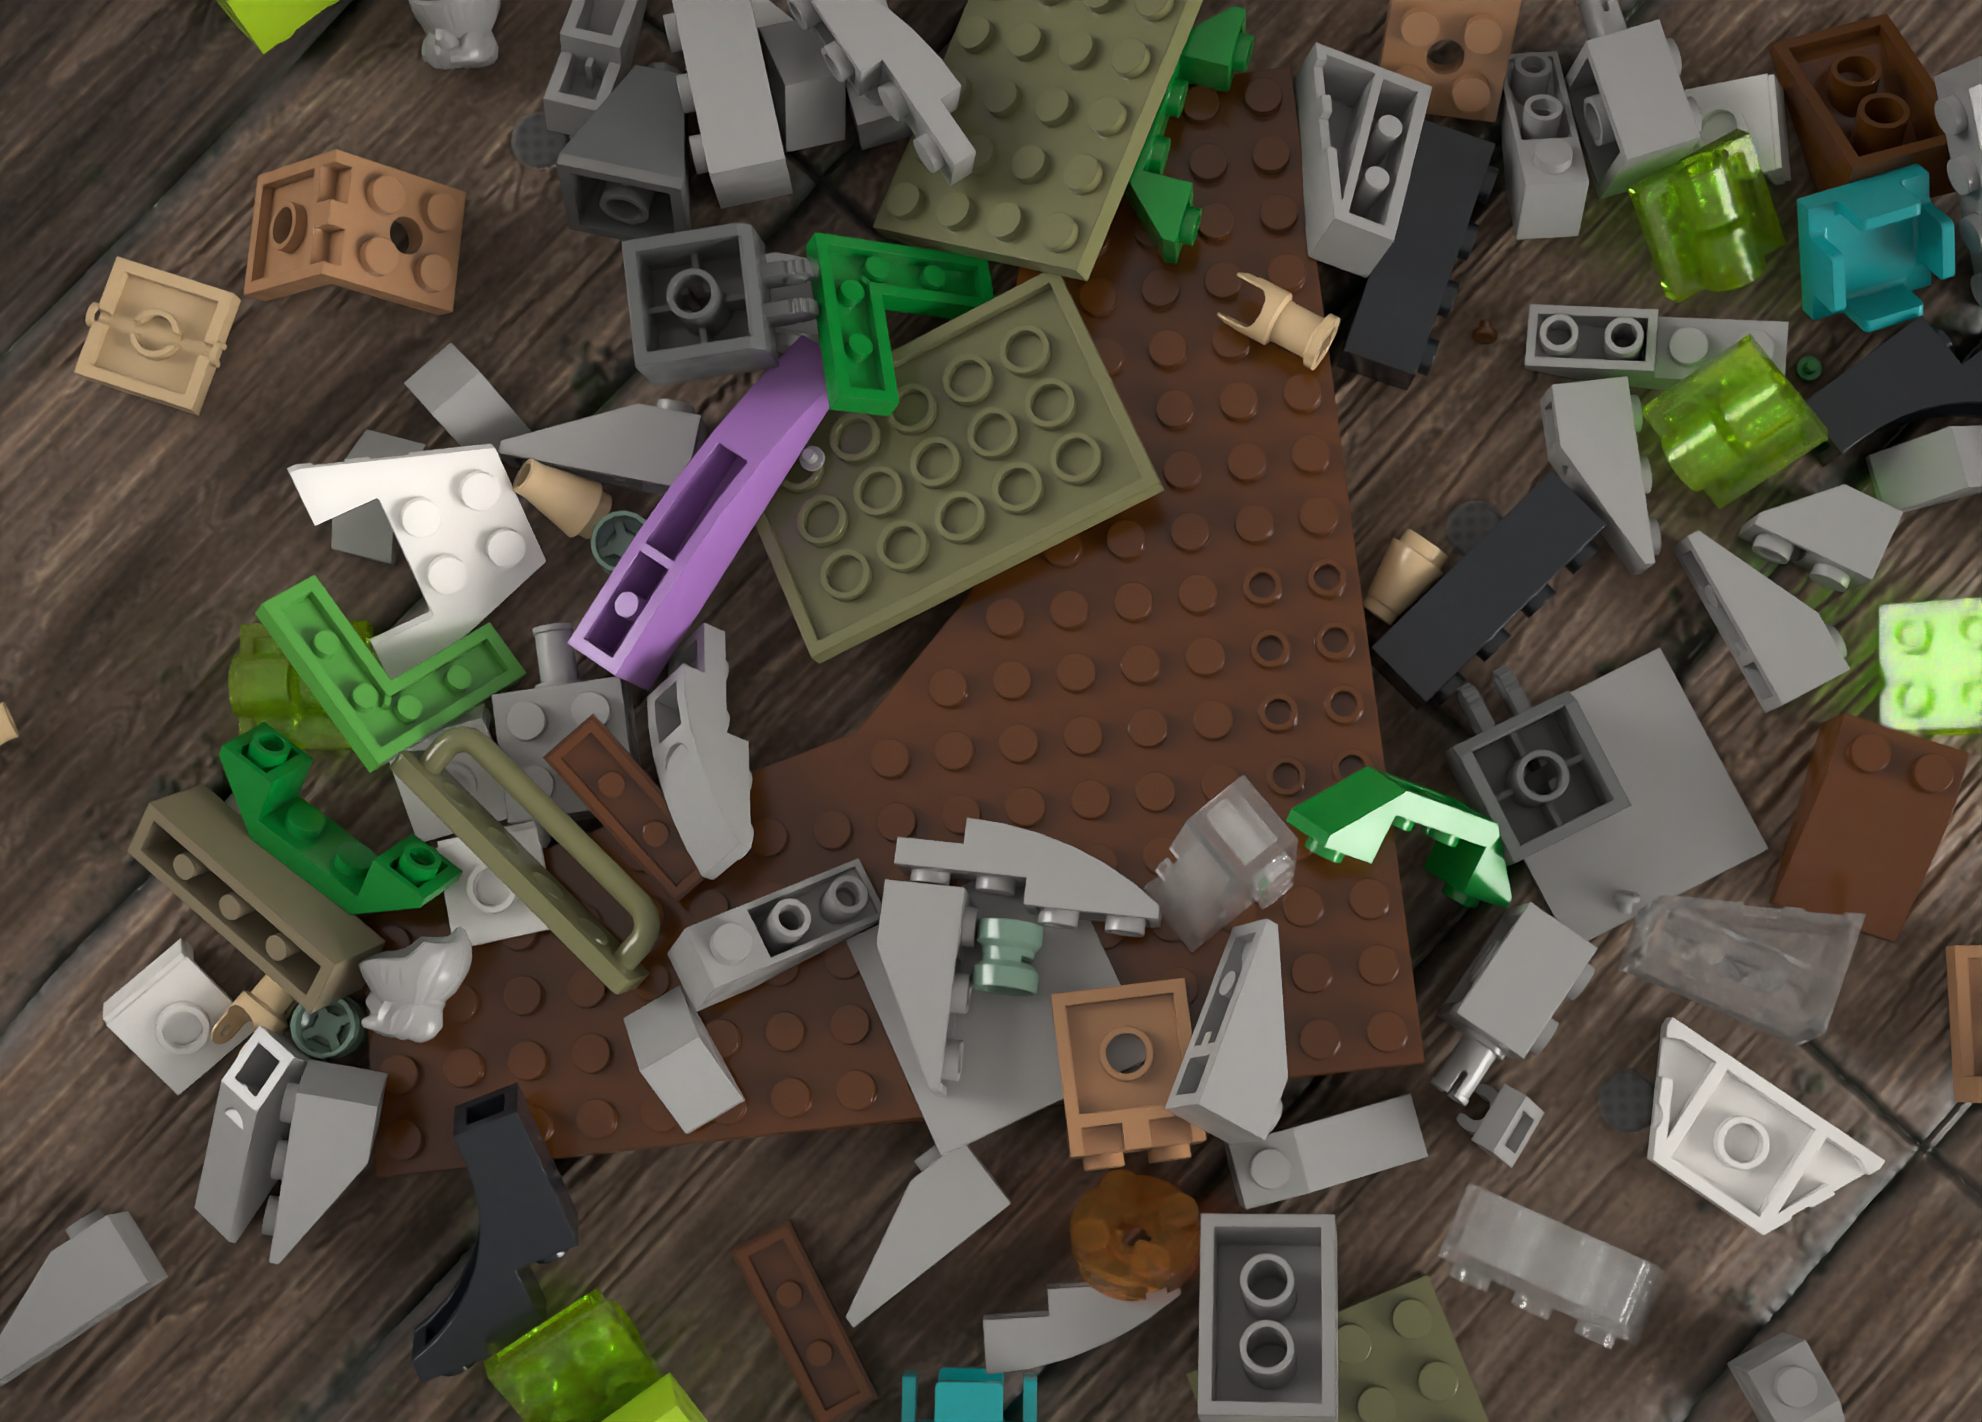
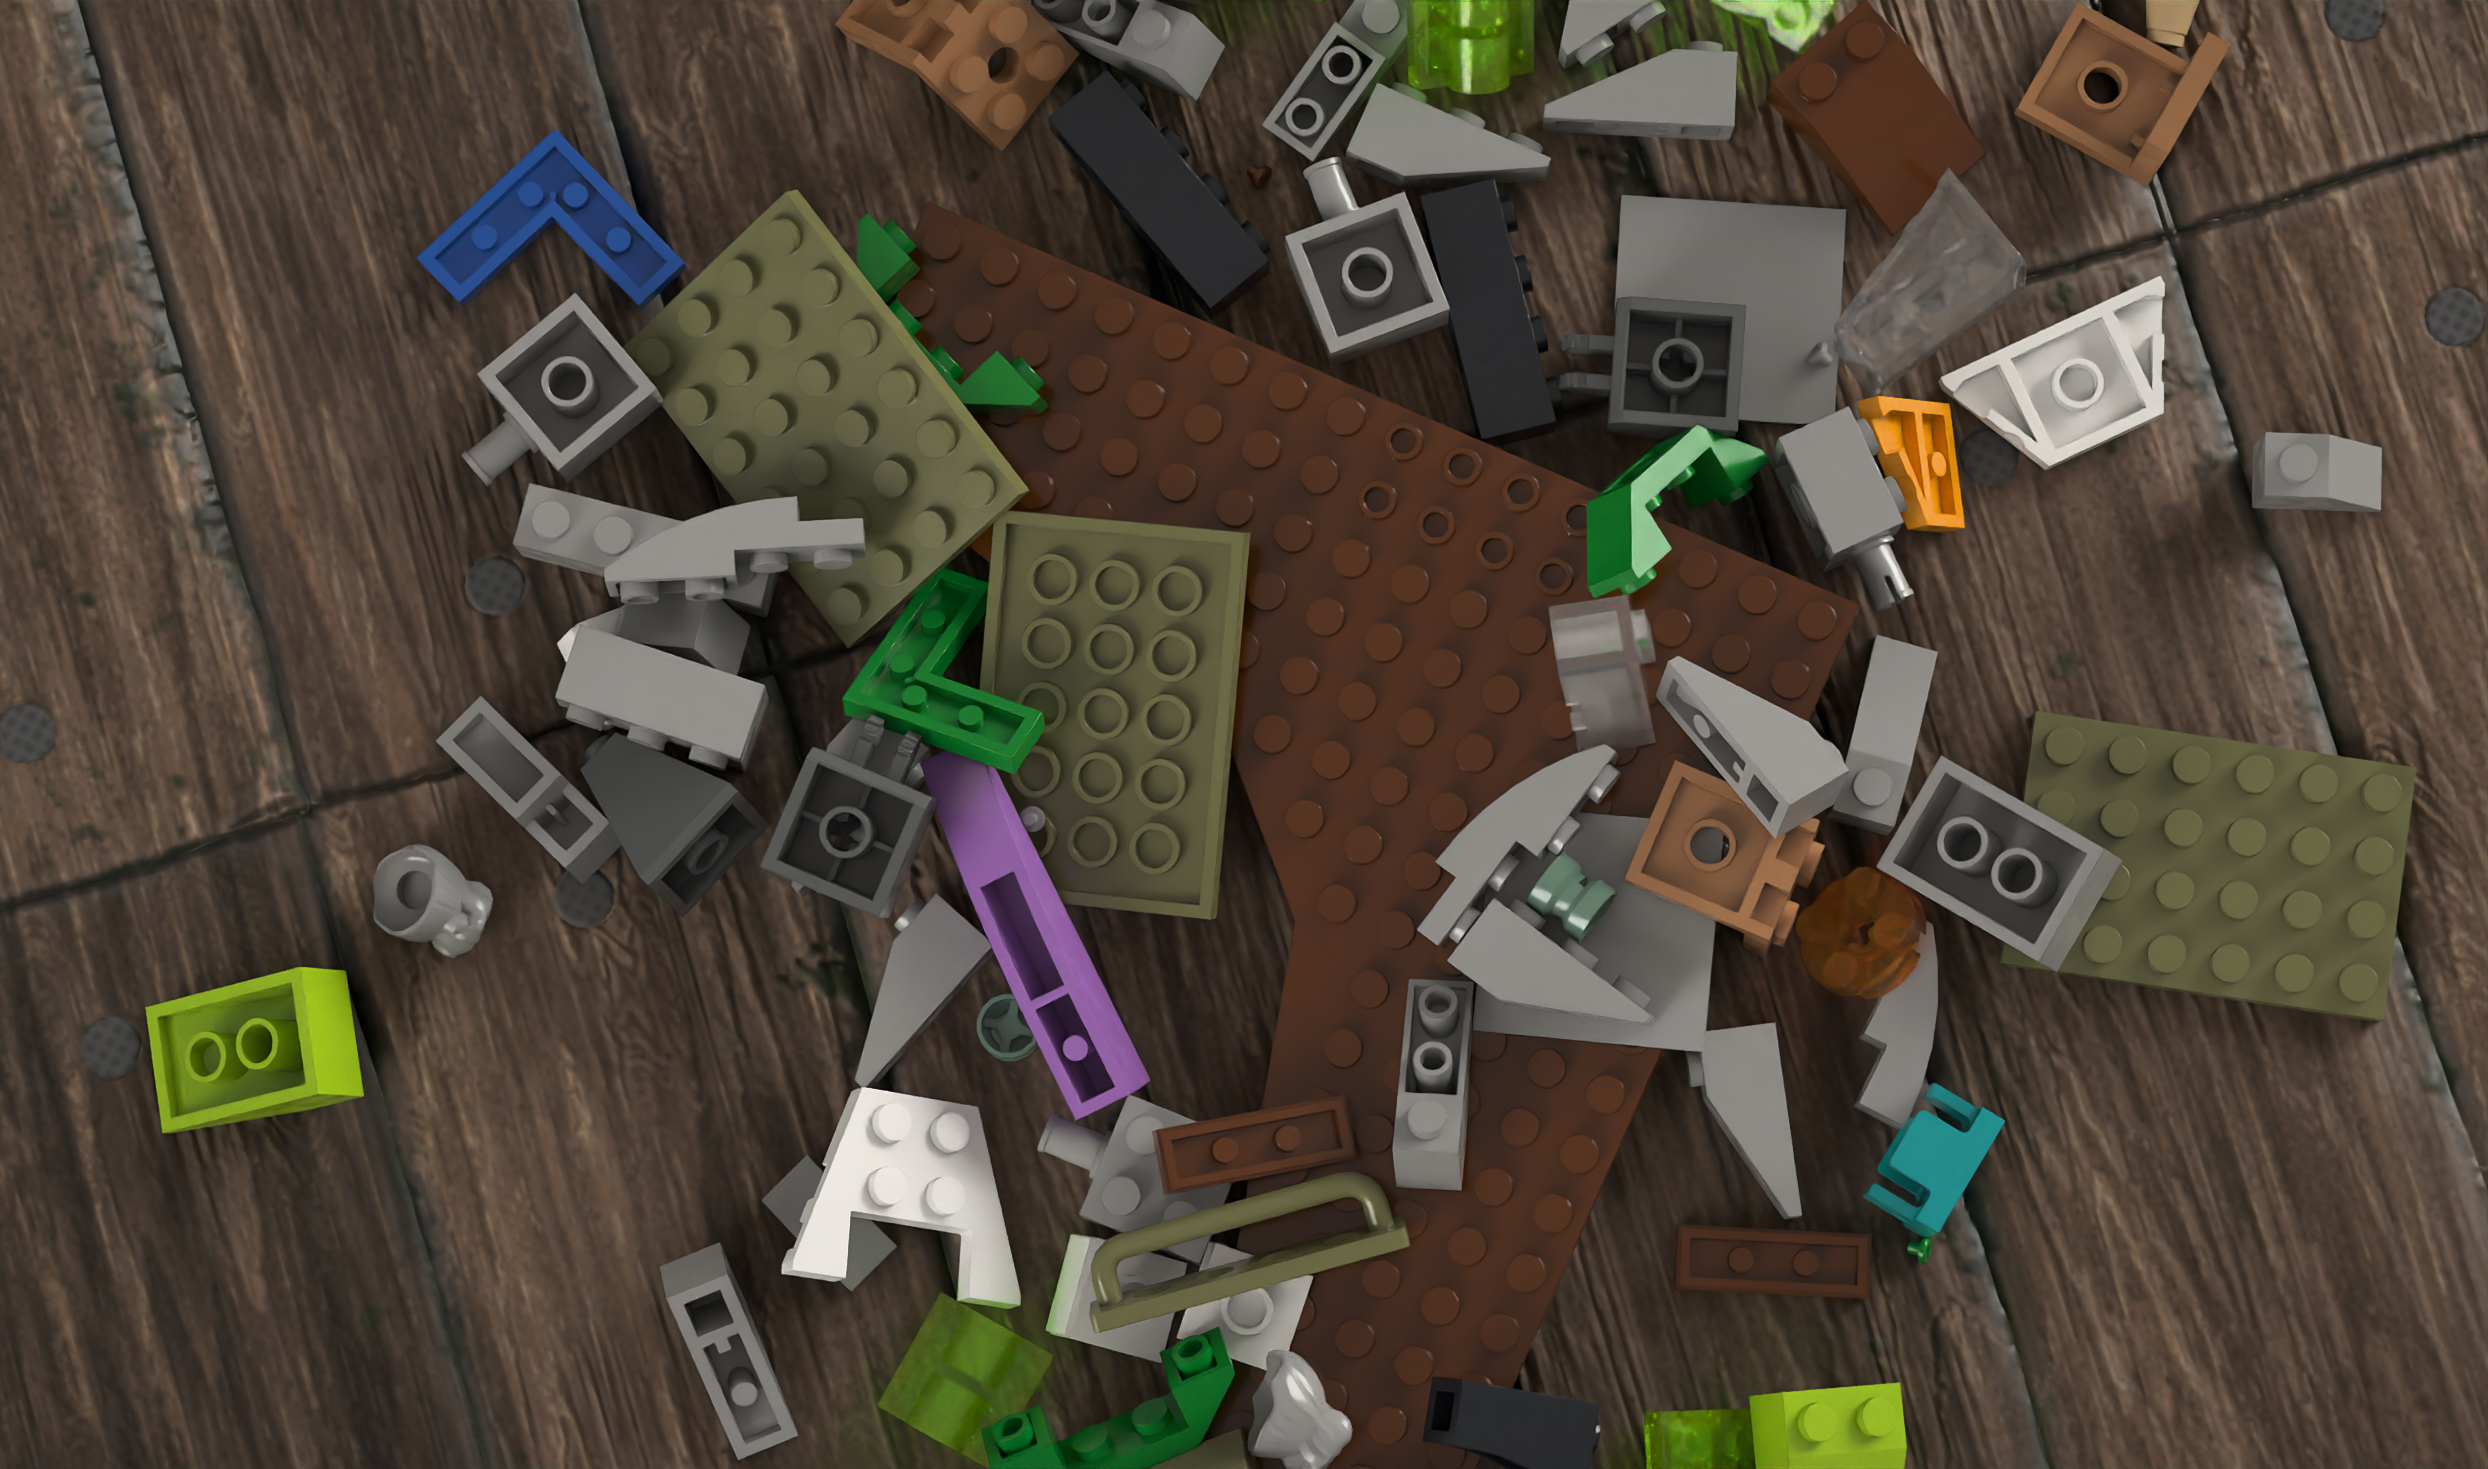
camera: 60 degrees left, 0 degrees up
(157, 335) = (566, 1337): tan plate -> none
(220, 470) = (727, 1350): none -> light grey slope
(332, 226) = (580, 1111): medium nougat bracket -> none
(366, 706) = (1034, 1322): bright green plate -> none
(464, 401) = (791, 1097): light grey slope -> none
(563, 497) = (938, 1054): tan cone -> none
(681, 1060) = (1493, 1226): light grey slope -> none
(696, 759) = (1241, 1065): light grey slope -> none
(1287, 324) = (1163, 344): tan piece -> none
(1357, 154) = (1047, 194): light grey wedge -> none
(1404, 576) = (1433, 374): tan cone -> none
(1456, 460) = (1363, 270): none -> light grey brick
(1505, 1125) = (1949, 569): light grey tile -> none
(1551, 1267) = (2088, 603): clear wedge -> none
(1591, 1040) = (1921, 456): none -> light orange wing

